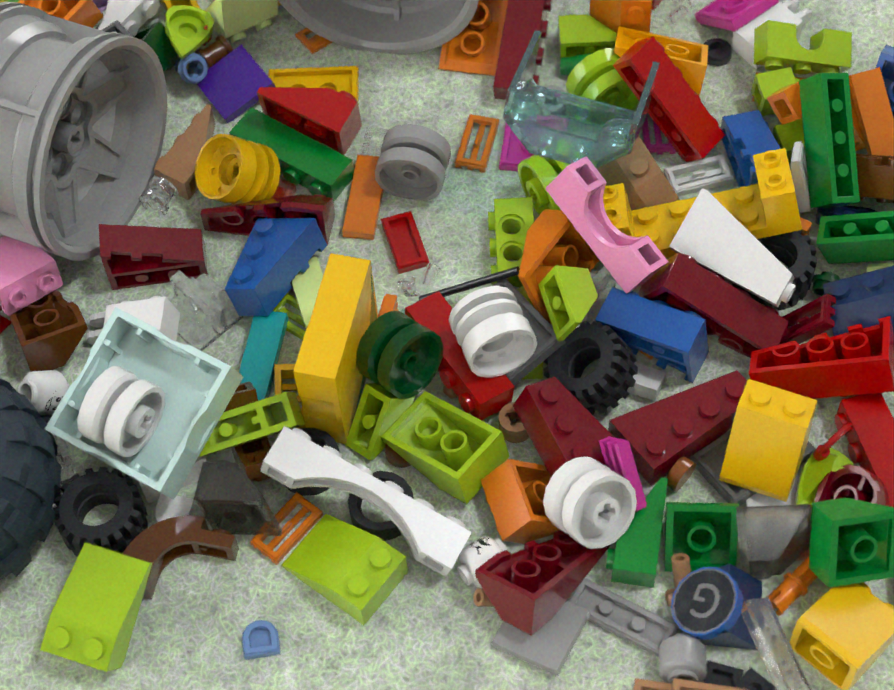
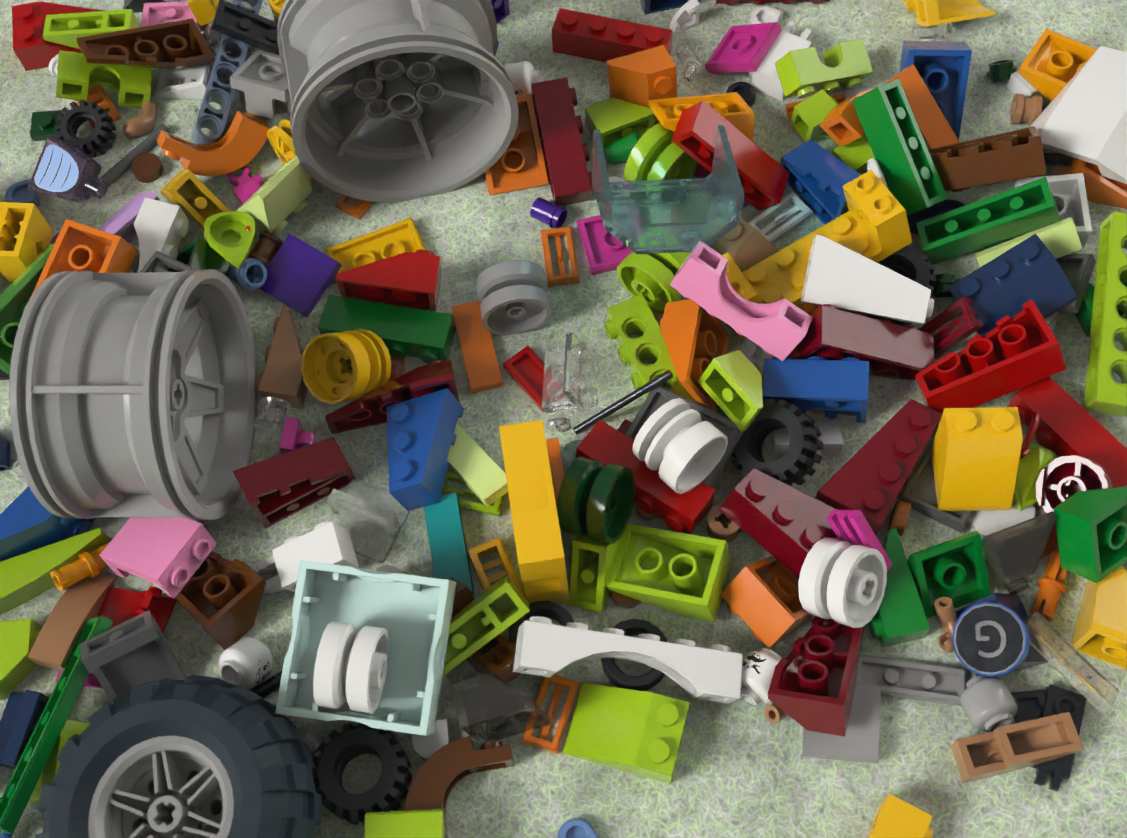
camera: 20 degrees left, 5 degrees up
(168, 216) = (294, 437): none -> dark pink tile
(434, 250) = (570, 378): none -> clear bracket
(484, 101) = (548, 213): none -> dark purple piece

